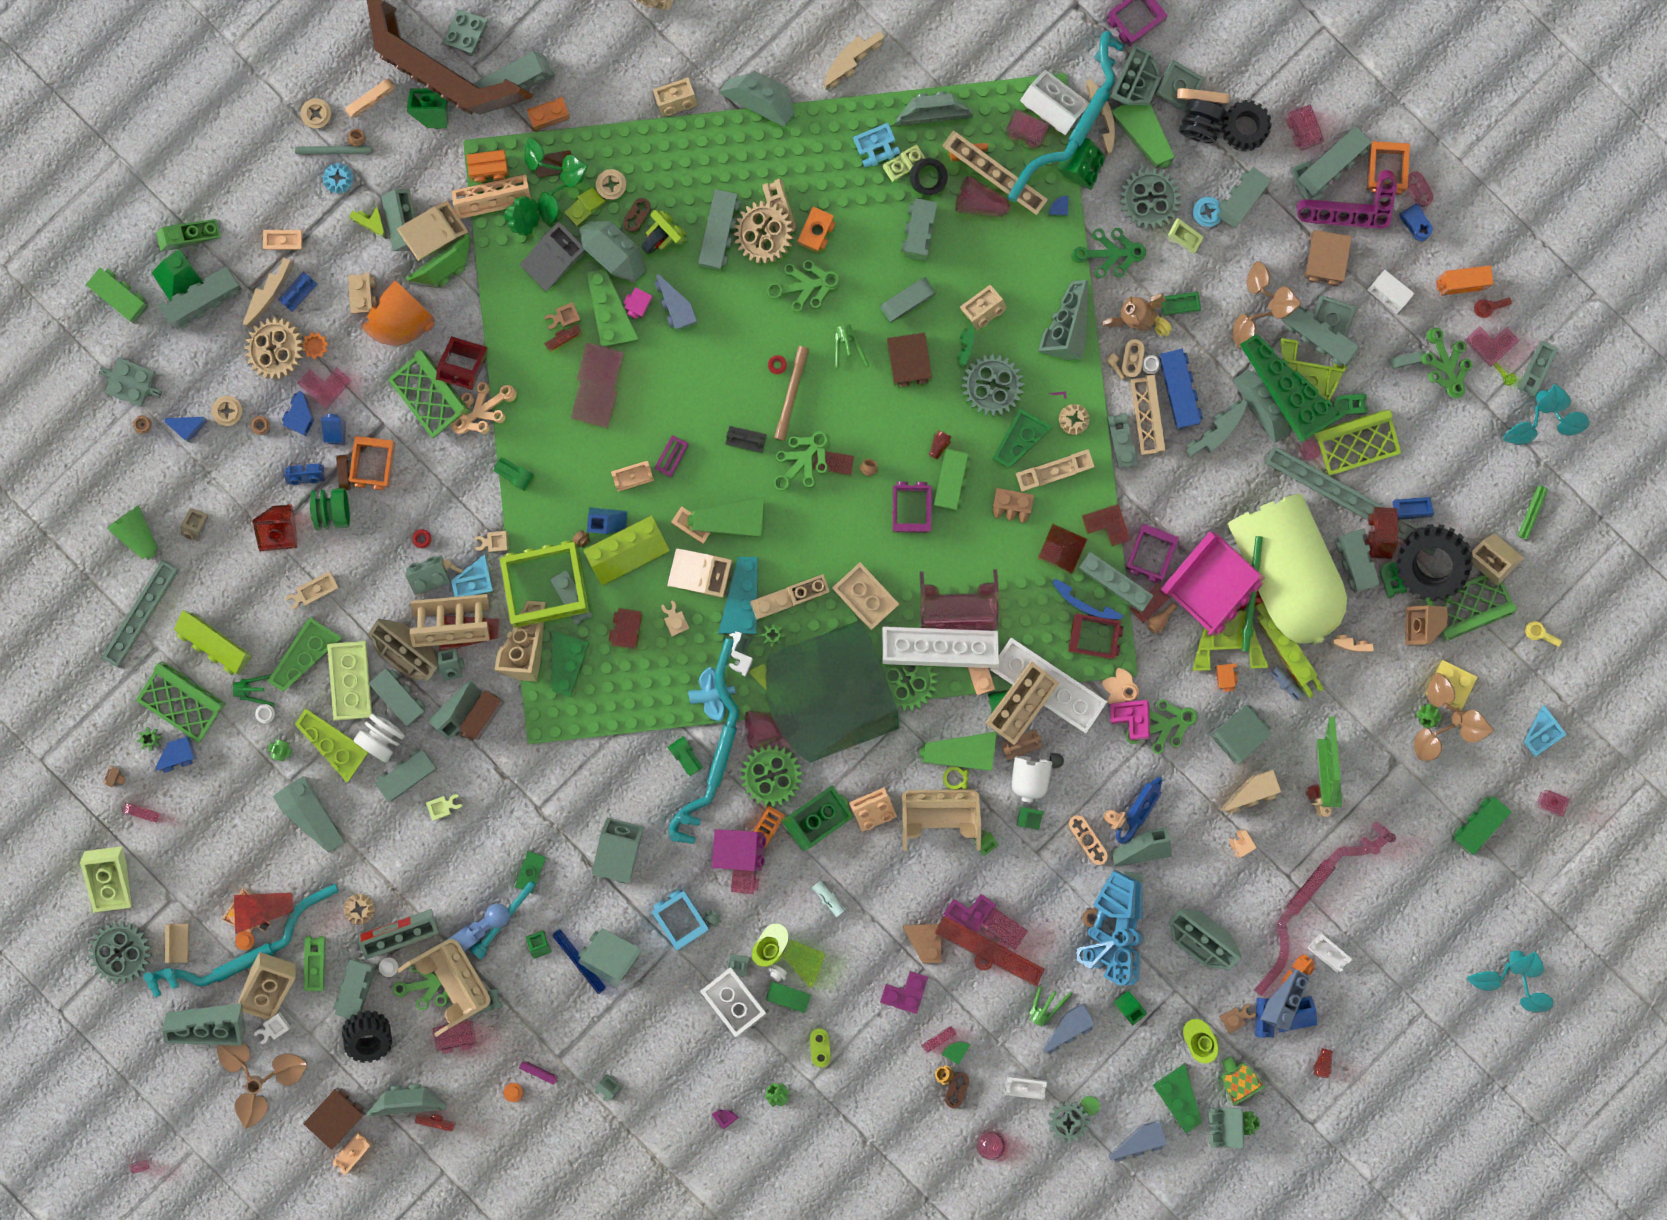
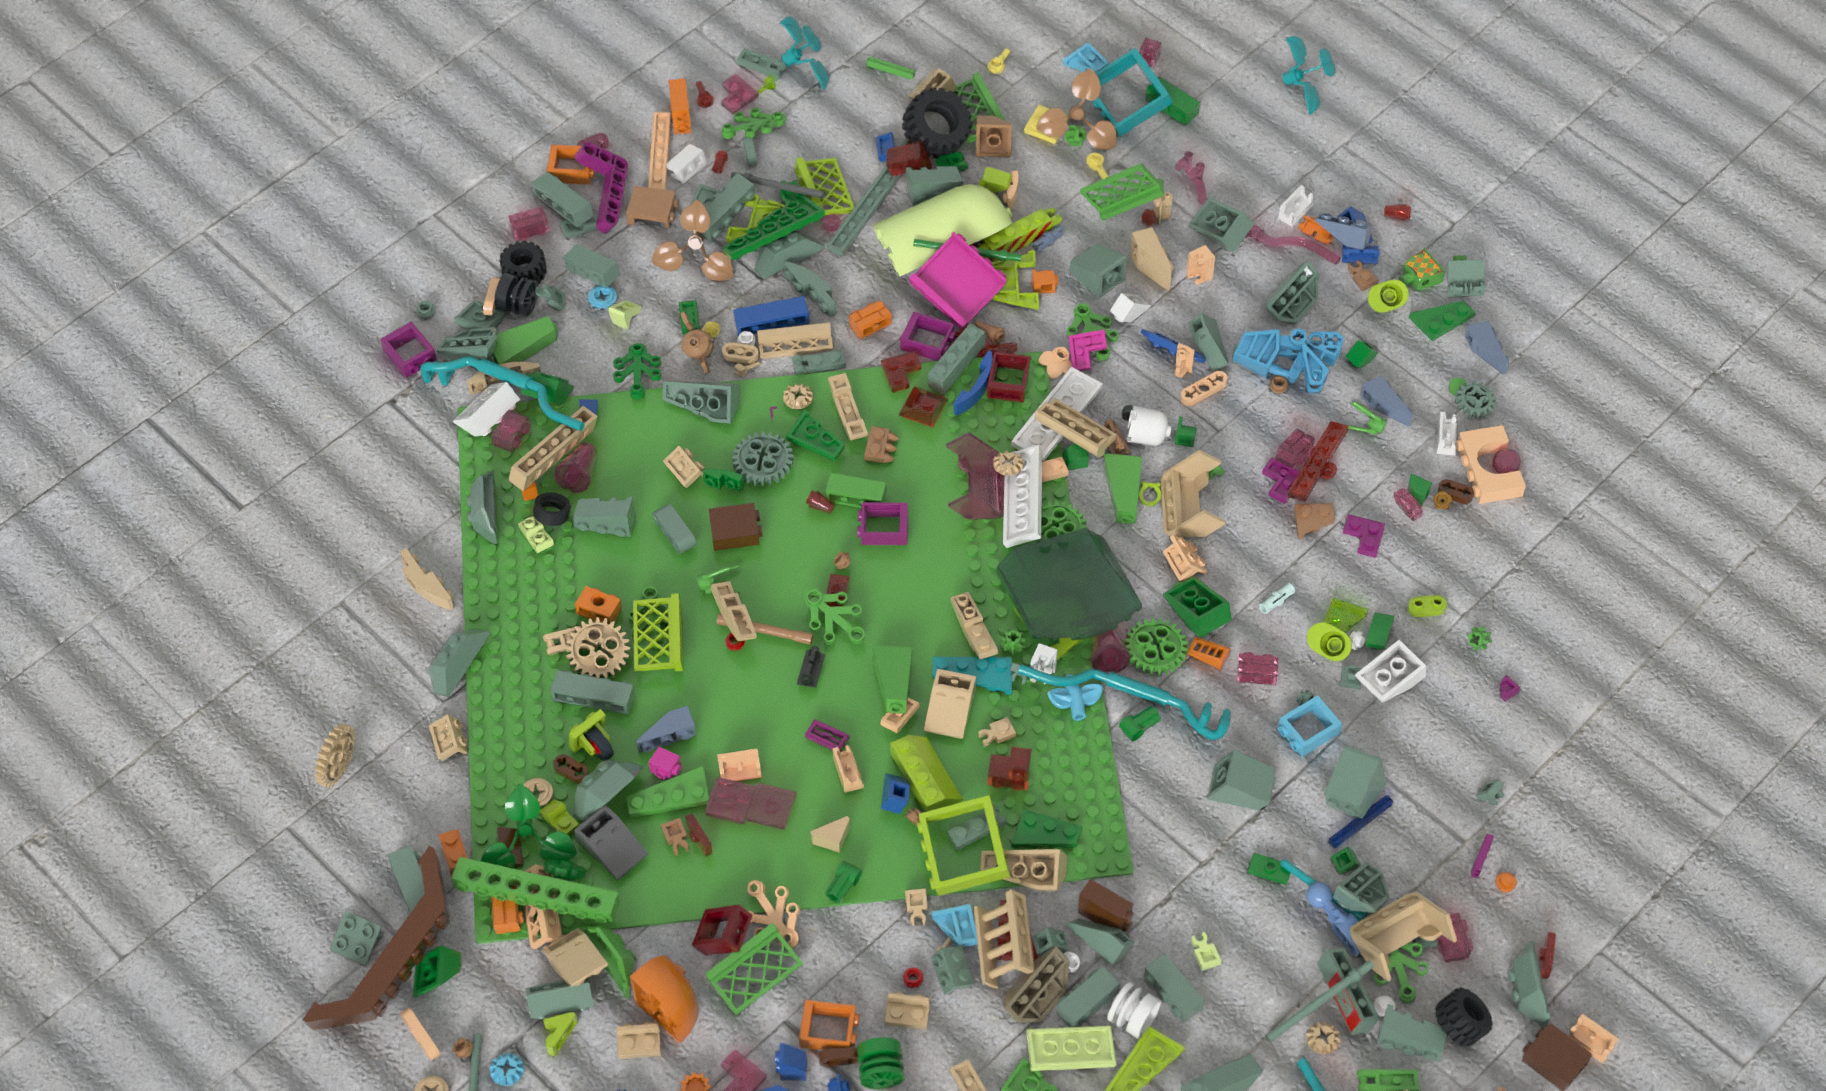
camera: 90 degrees left, 30 degrees down
(387, 533) = (907, 1011): none -> tan bracket
(399, 937) = (1354, 976): none -> sand green bar
(435, 683) = (1074, 961): none -> white plate
(483, 256) = (467, 869): none -> bright green brick
(497, 956) = (1362, 890): none -> sand green wedge
(560, 462) = (831, 835): none -> tan slope
(636, 373) = (739, 765): none -> light nougat hinge
(738, 850) = (1234, 669): magenta panel -> none
(784, 305) = (674, 628): none -> lime fence
(804, 361) = (733, 611): none -> tan slope
(865, 596) = (971, 563): tan plate -> none
(875, 139) = (510, 559): medium azure plate -> none
(968, 632) = (1007, 468): none -> tan gear
(1009, 1111) = (1487, 485): none -> light nougat arch
(1134, 628) = (1005, 347): none -> clear red plate
(1152, 215) = (600, 338): sand green gear -> none
(1175, 492) = (870, 319): none -> orange brick
(1191, 23) = (425, 305): none -> sand green plate
(1191, 766) = (1129, 307): none -> white slope
(1205, 161) = (554, 296): none -> sand green plate
(1300, 869) = (1221, 224): none -> sand green slope
(1358, 625) = (995, 180): none -> lime slope
(1369, 360) = (780, 185): none -> dark grey bar
(1394, 328) = (721, 158): none -> clear red pin
(1396, 737) = (1095, 162): none -> light yellow plate
(1406, 261) = (659, 150): none -> light nougat tile
(1415, 220) = (623, 144): blue piece -> none
(1501, 801) = (1118, 67): none -> teal window

